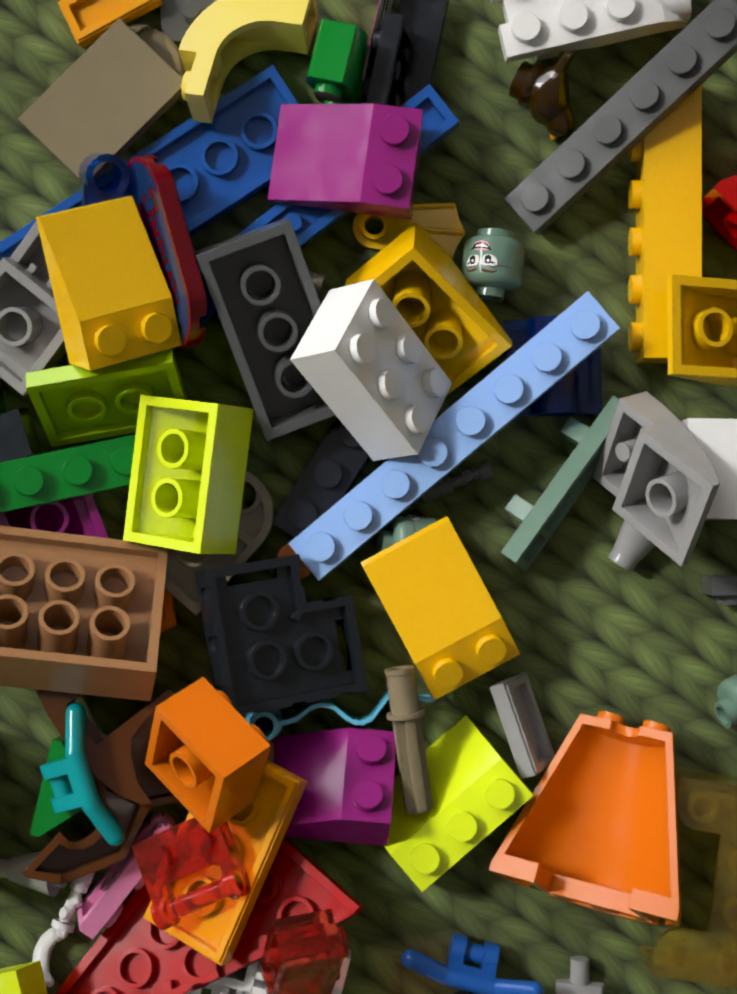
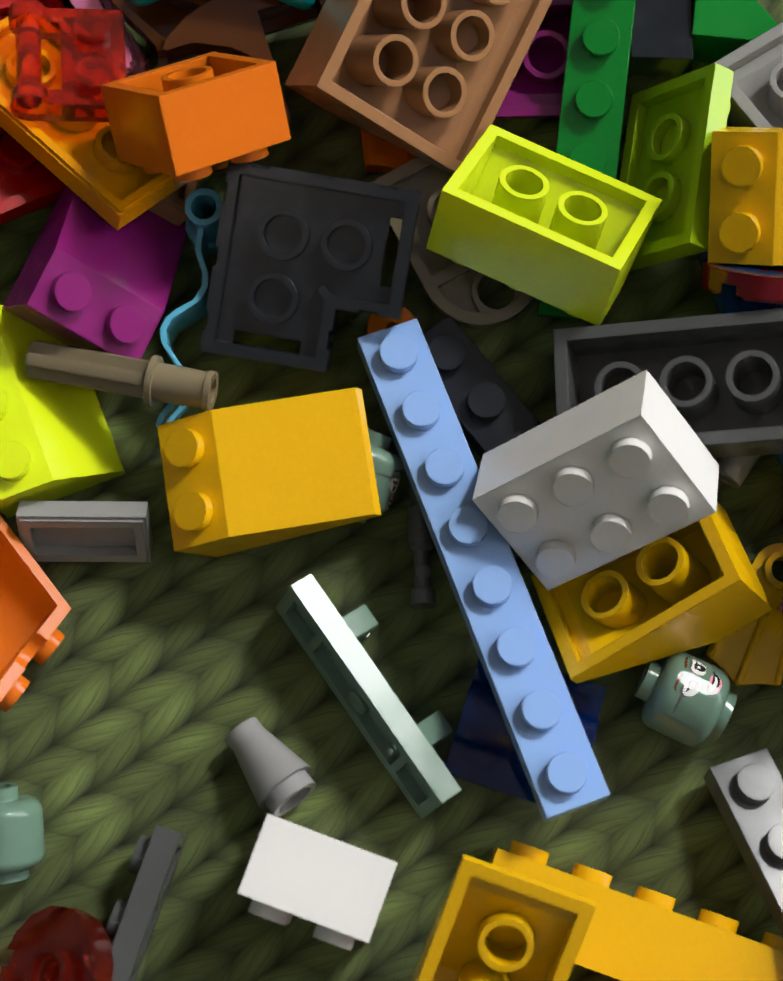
camera: 110 degrees right, 10 degrees down
(657, 475) = (340, 796): light grey slope -> none

